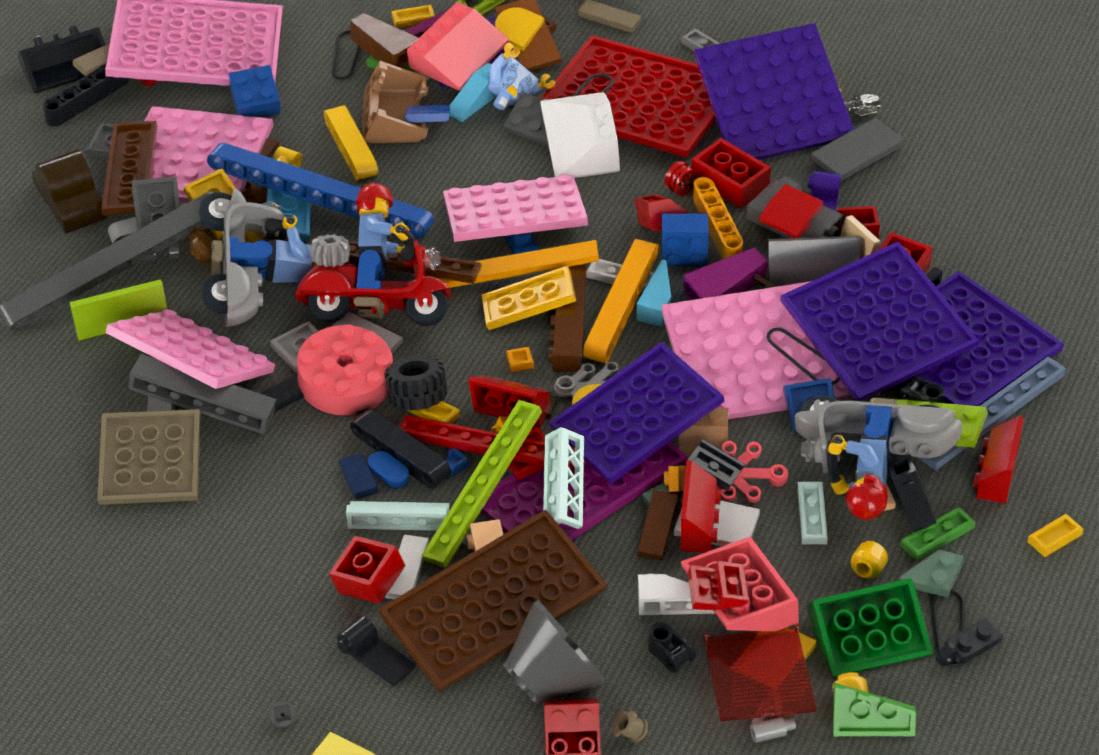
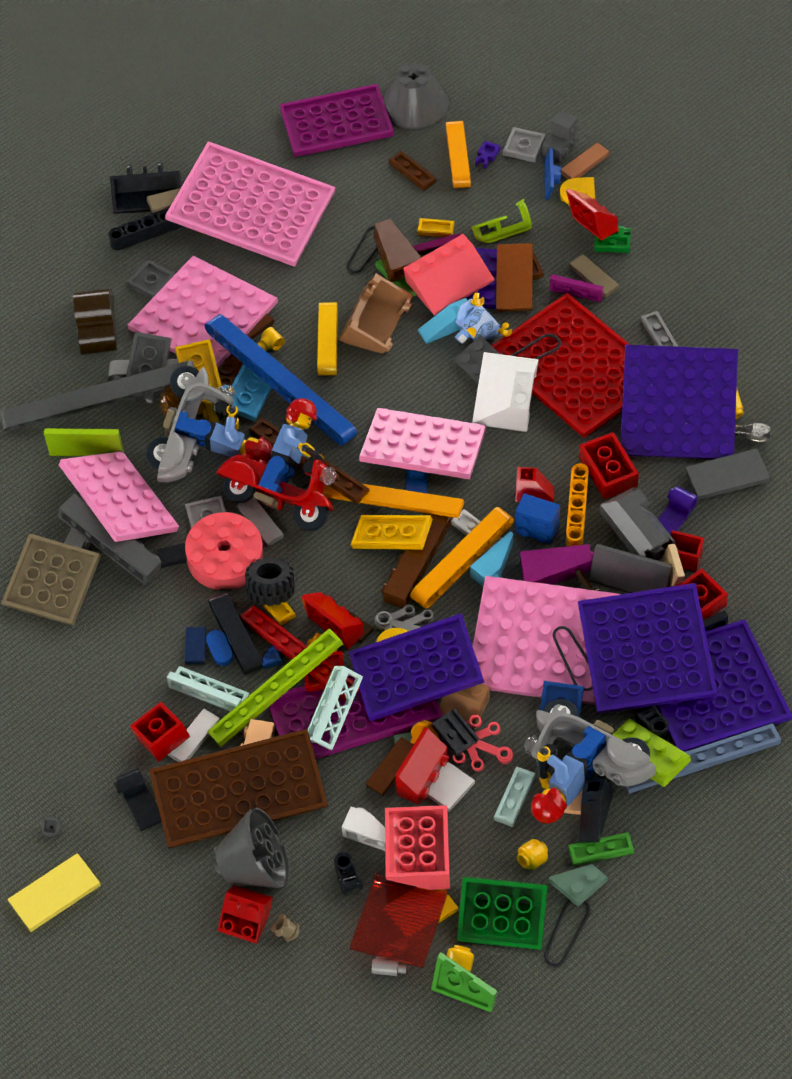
camera: 25 degrees right, 10 degrees up
(129, 159) = (148, 308): reddish brown plate -> none
(254, 92) = (272, 269): blue brick -> none
(330, 250) = (251, 446): light grey gear -> none
(427, 113) = (397, 331): blue tile -> none
(519, 26) = (507, 268): yellow tile -> none
(520, 359) = (362, 583): light orange tile -> none
(605, 28) = (576, 288): none -> magenta tile
(680, 177) = (566, 456): red wheel -> none
(718, 587) = (396, 841): red slope -> none
(791, 211) = (627, 524): red slope -> none
(969, 643) = (571, 952): black hinge -> none
(999, 461) = (679, 805): red slope -> none
(1055, 535) = (691, 883): yellow tile -> none

